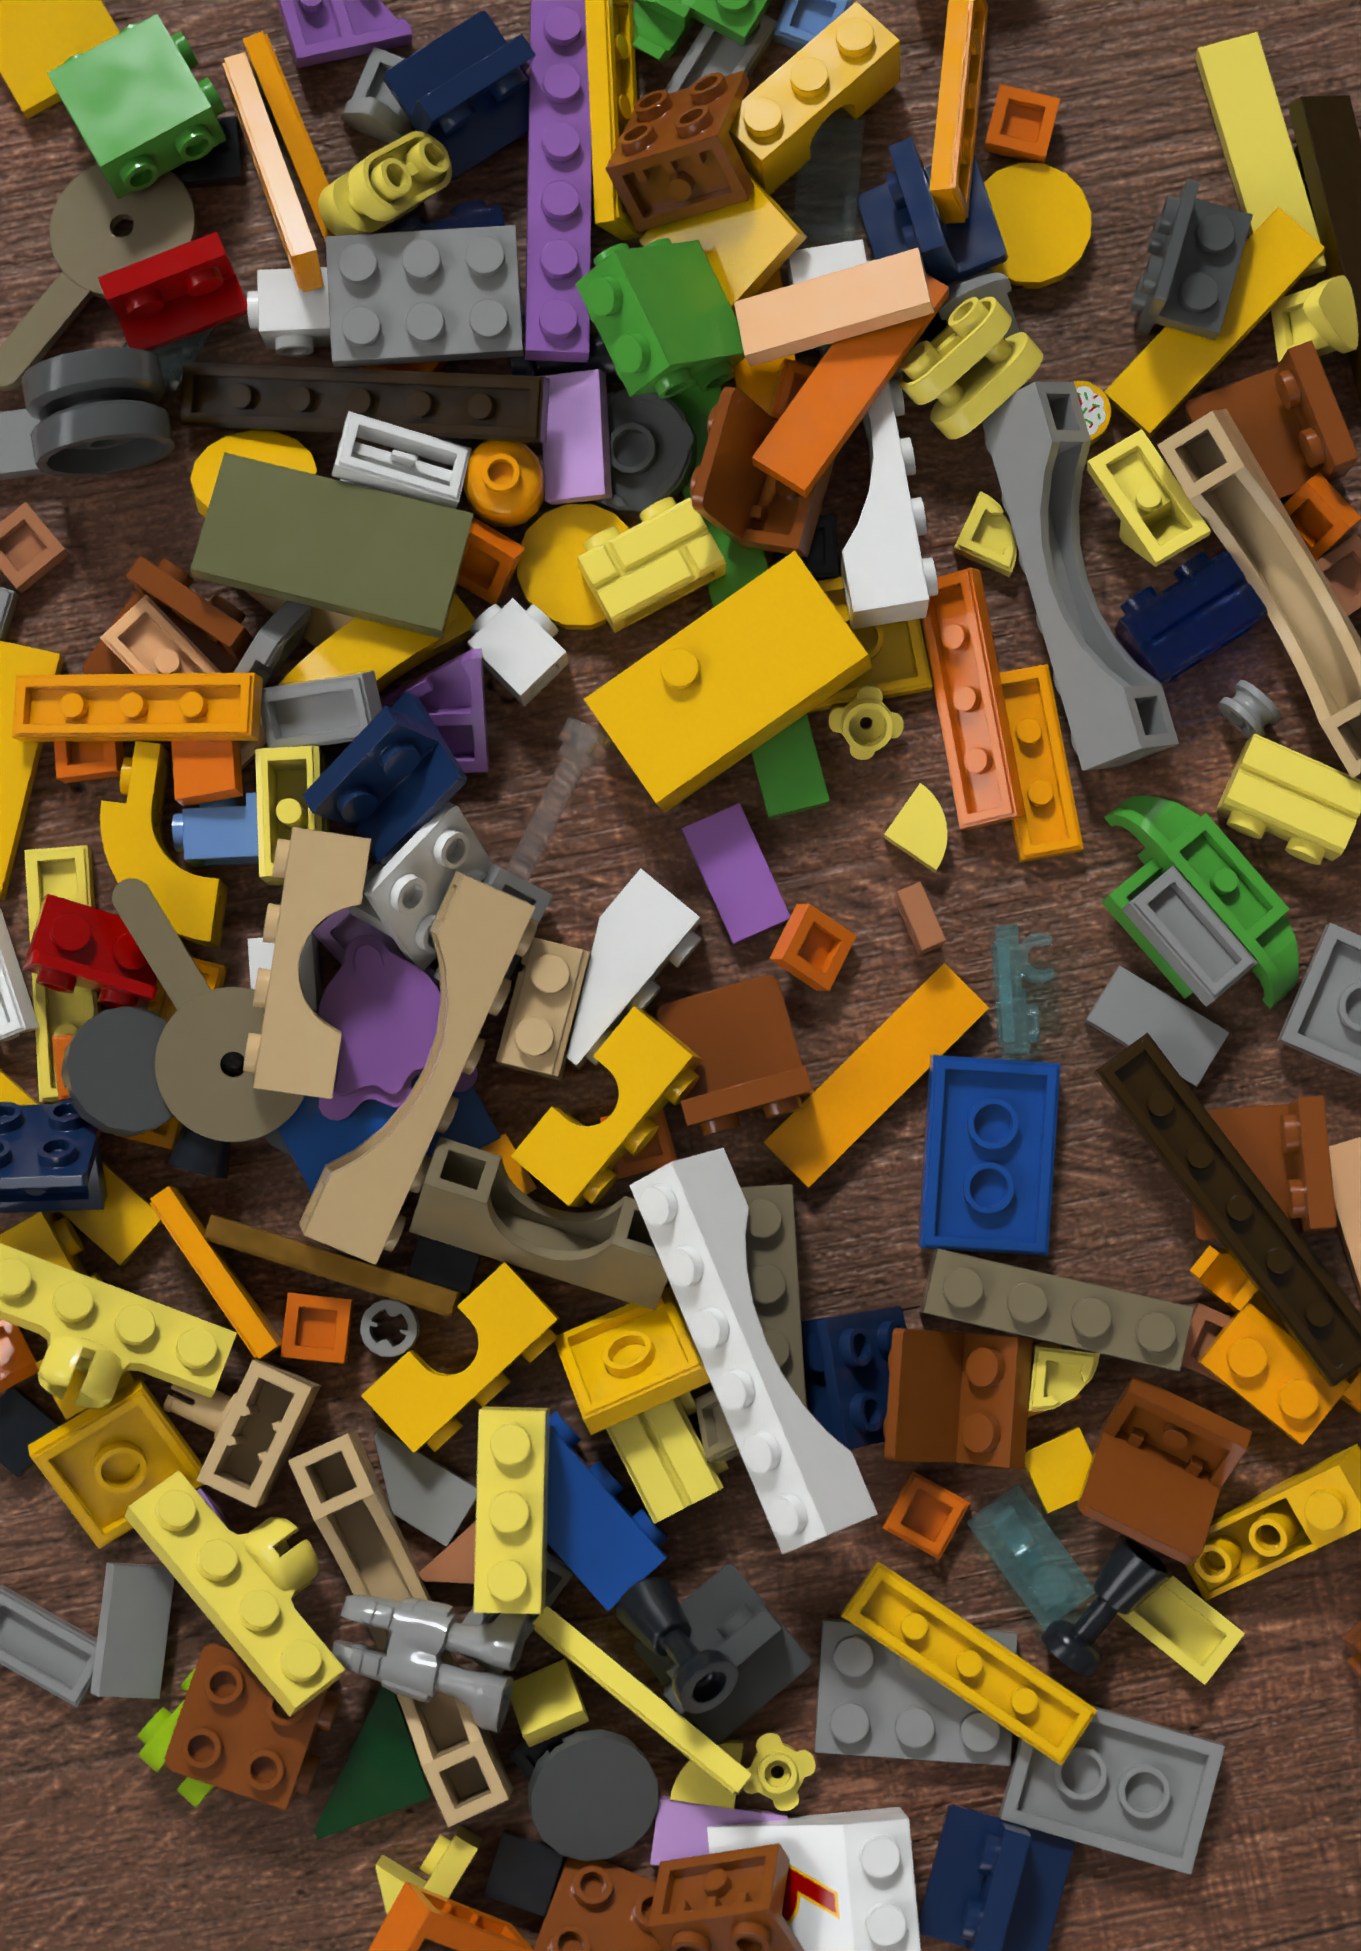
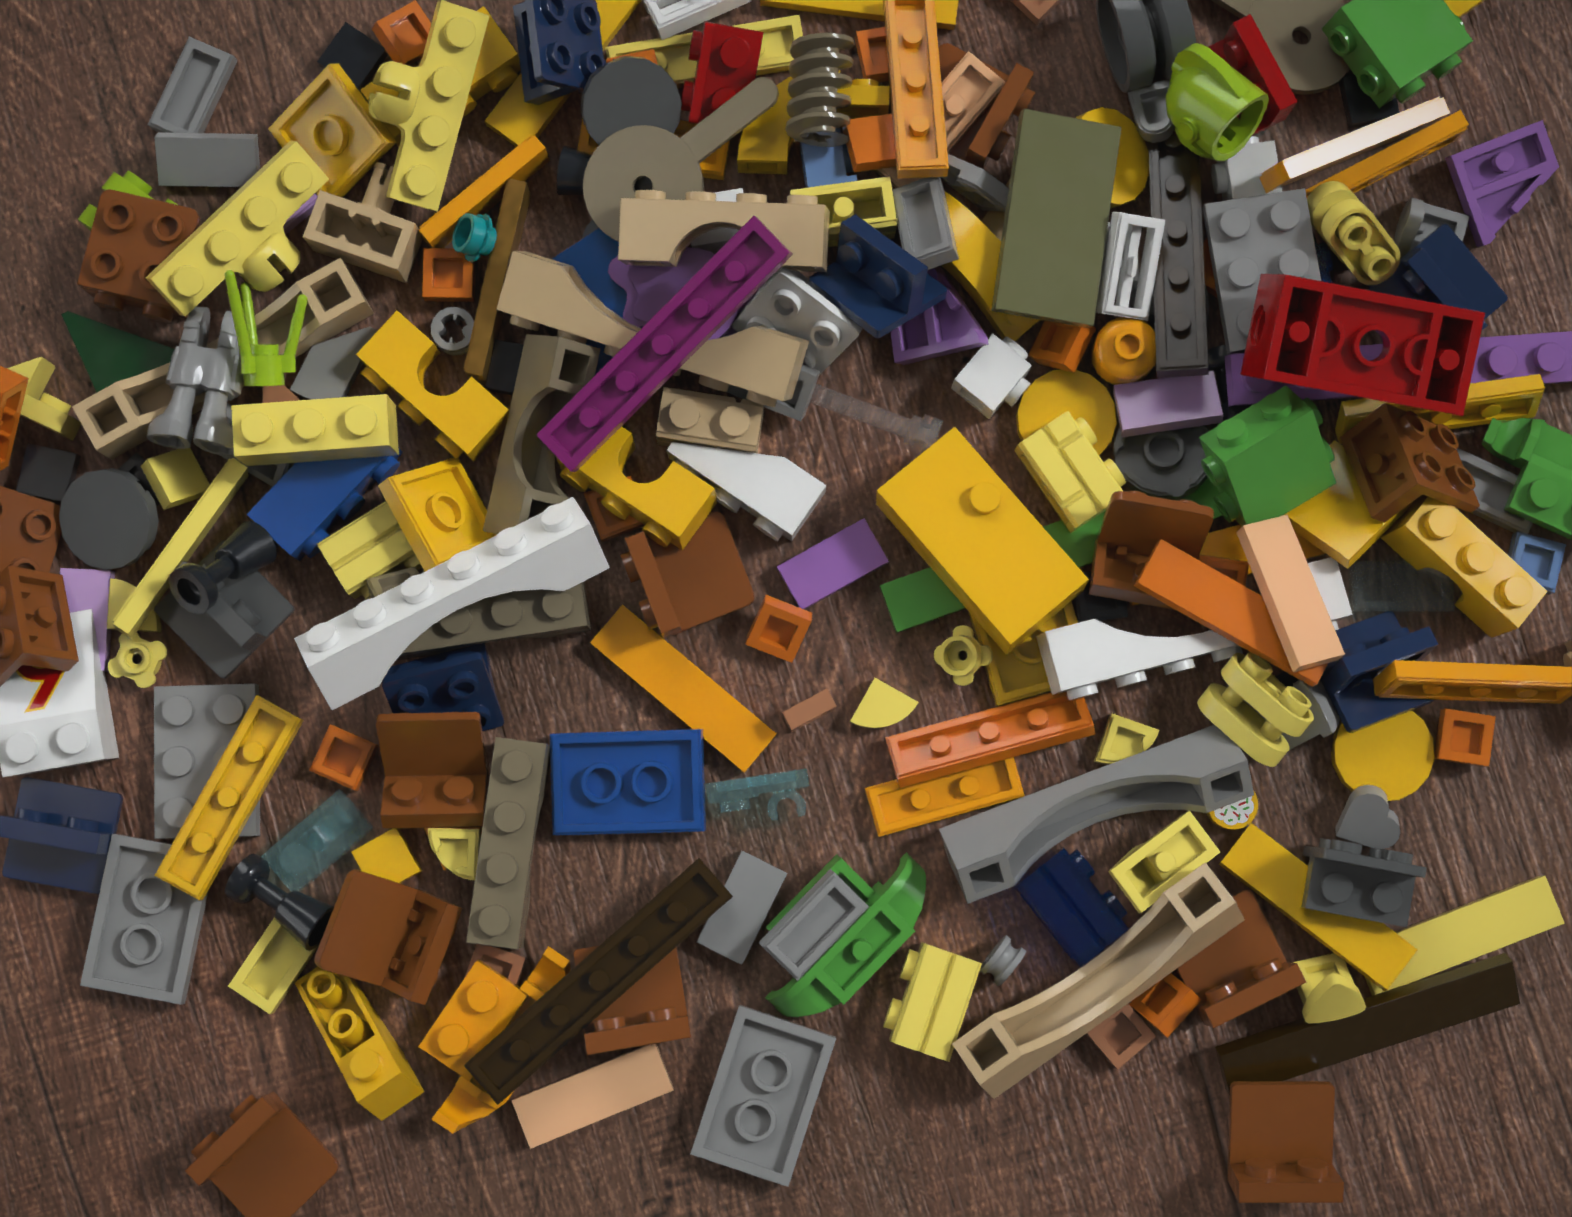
camera: 75 degrees right, 0 degrees up
(133, 827) = (816, 87): none -> dark tan piece
(198, 410) = (1150, 112): none -> light grey tile
(207, 337) = (1205, 103): none -> lime helmet
(274, 1287) = (474, 236): none -> teal plate
(412, 1574) = (262, 362): none -> lime plant
(449, 1048) = (664, 344): none -> magenta plate
(527, 238) = (1313, 331): none -> red plate
(1111, 250) = (1368, 819): none -> light grey tile

